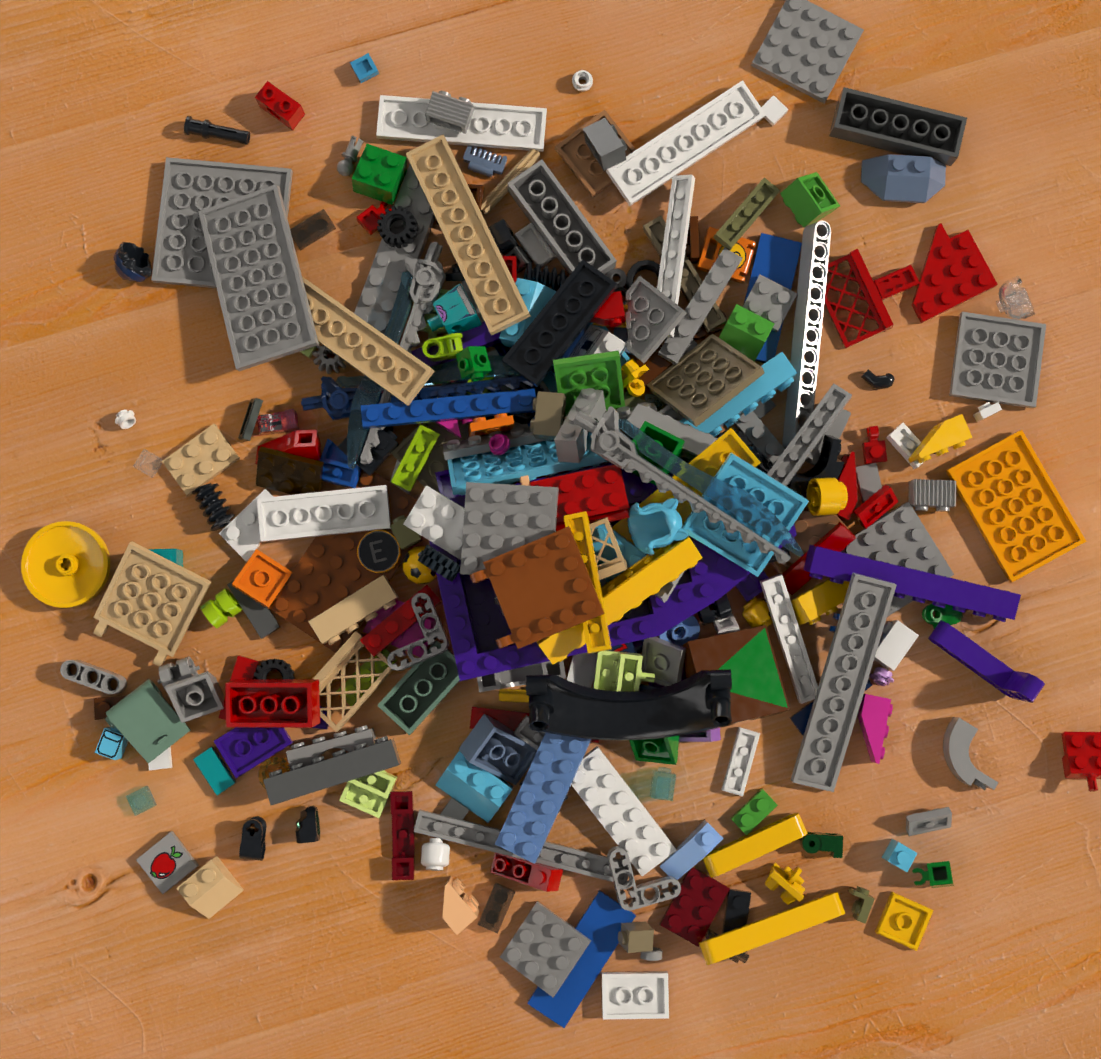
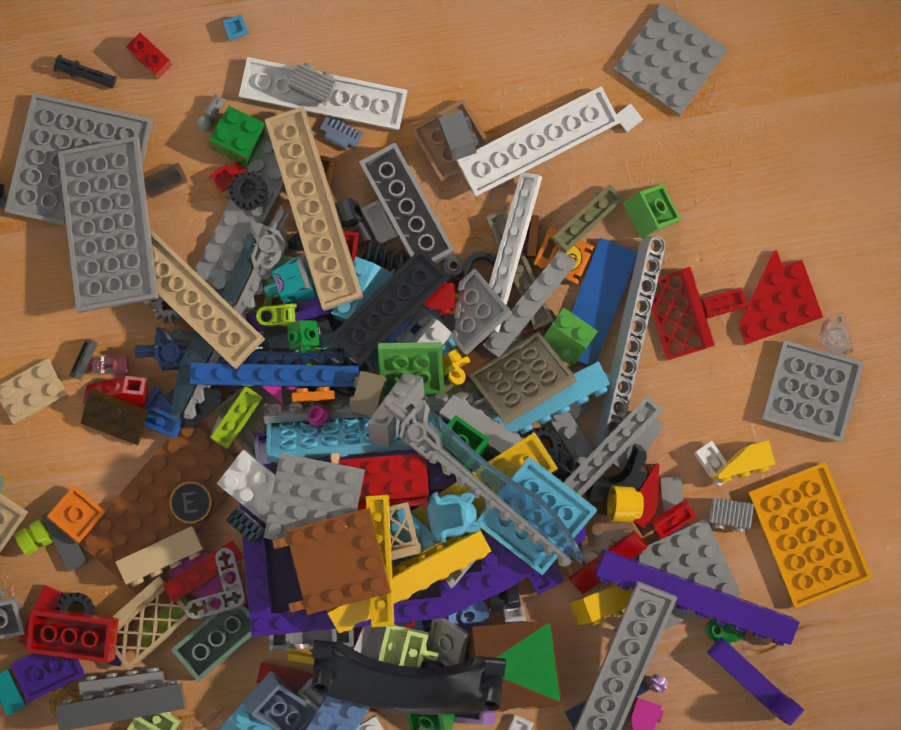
camera: 10 degrees right, 0 degrees up
(213, 505) = (38, 438): black piece -> none
(244, 531) = (71, 460): white wing -> none
(323, 513) = (142, 459): white plate -> none
(403, 534) = (215, 492): olive brick -> none
(415, 570) = (219, 521): yellow piece -> none
(502, 188) = (371, 148): tan axle -> none
(582, 74) = (446, 59): white plate -> none
(757, 613) = (547, 607): yellow head -> none
(770, 301) = (597, 307): light grey plate -> none
(790, 638) = (573, 635): white plate -> none
(874, 450) = (681, 464): red plate -> none
(878, 382) = (694, 398): black arm -> none
(894, 644) = (672, 654): white brick -> none
(897, 126) = (746, 151): dark grey brick -> none
(903, 177) = (746, 201): sand blue wedge -> none
(987, 410) = (794, 439): white plate -> none

